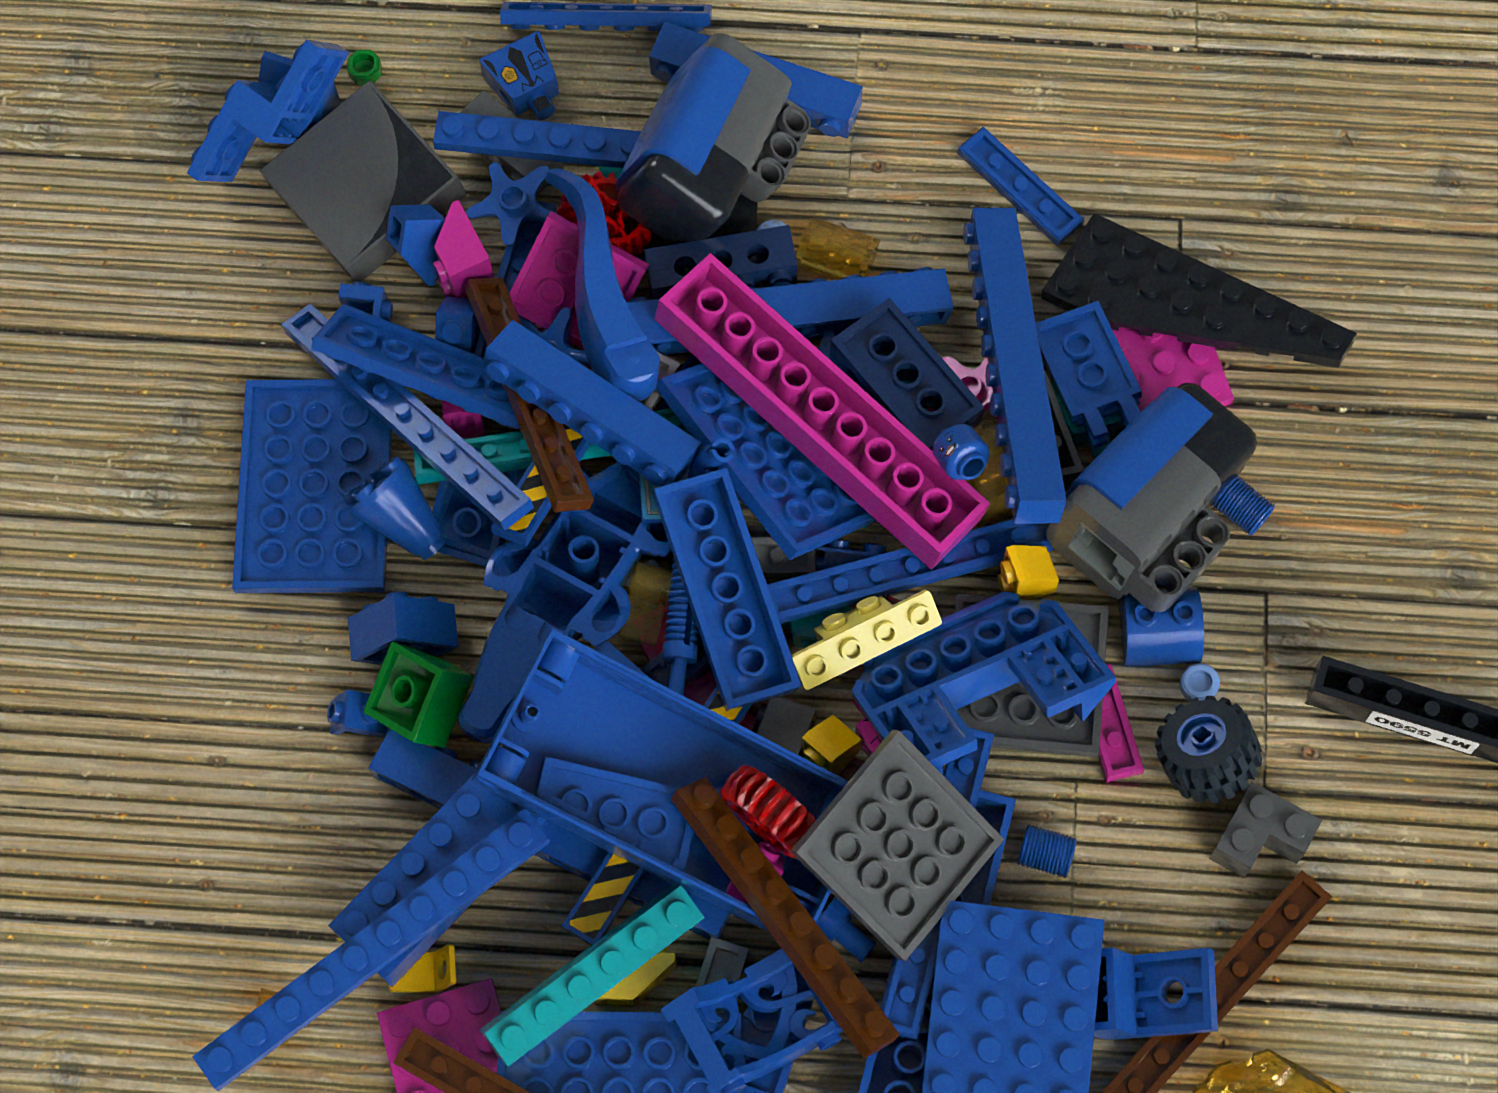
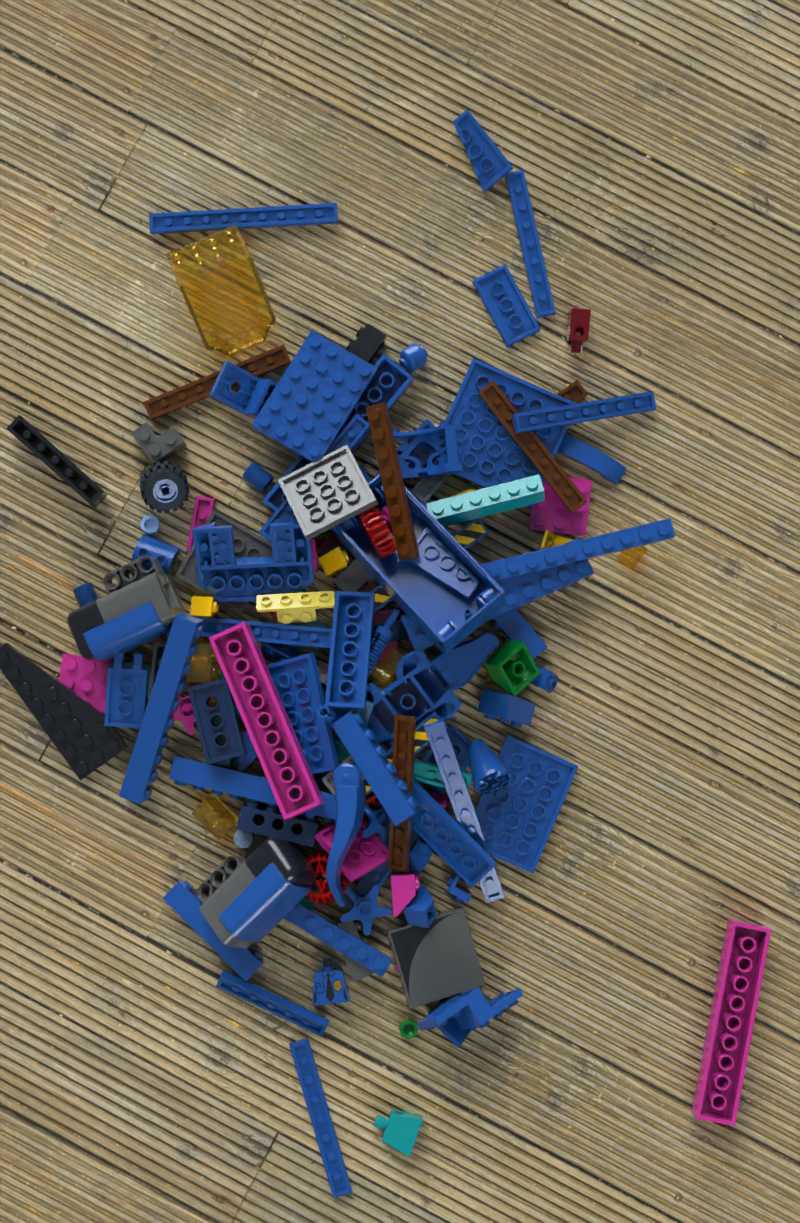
camera: 165 degrees left, 15 degrees up
(961, 452) = (210, 667): blue head -> none
(1020, 186) = (108, 813): blue tile -> none

